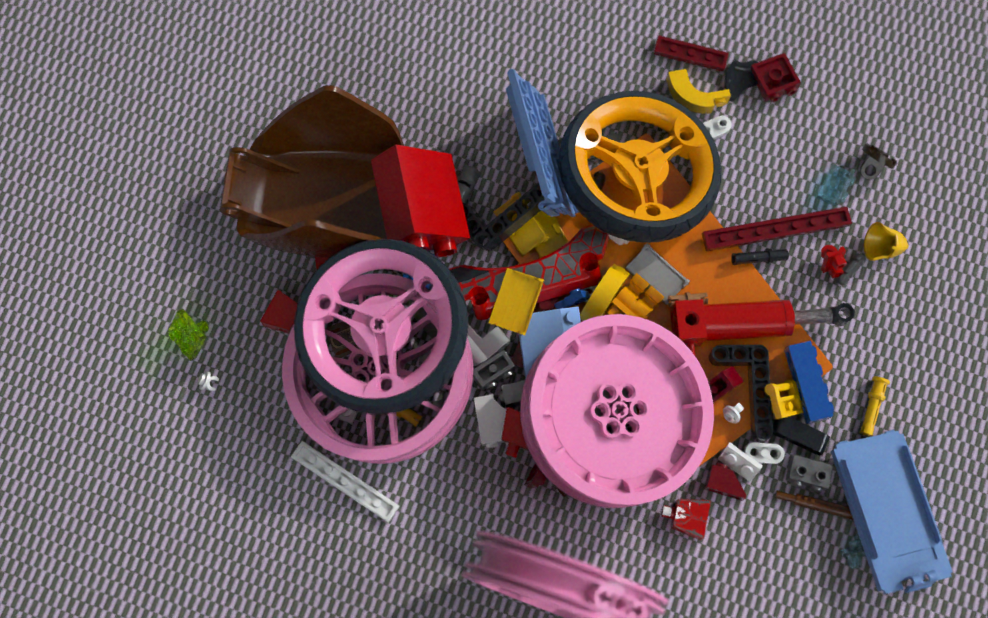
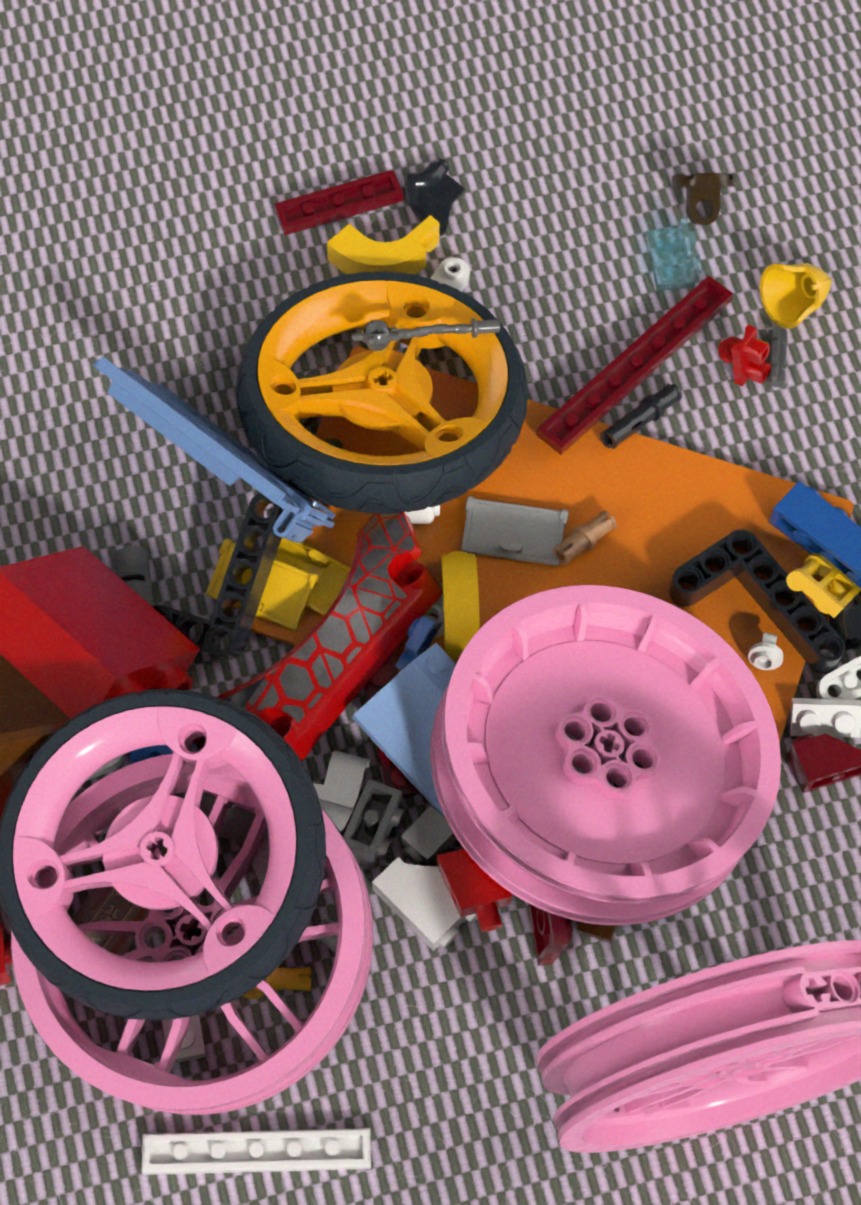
camera: 35 degrees left, 10 degrees down
(516, 301) = (338, 694): yellow piece -> none
(626, 301) = (496, 586): light orange hips -> none
(654, 138) = (378, 335): none -> dark grey piece
(688, 516) = (813, 844): red torso -> none
(724, 383) = (725, 613): dark red slope -> none
(746, 320) = (690, 508): red piece -> none
(775, 77) = (484, 164): dark red plate -> none

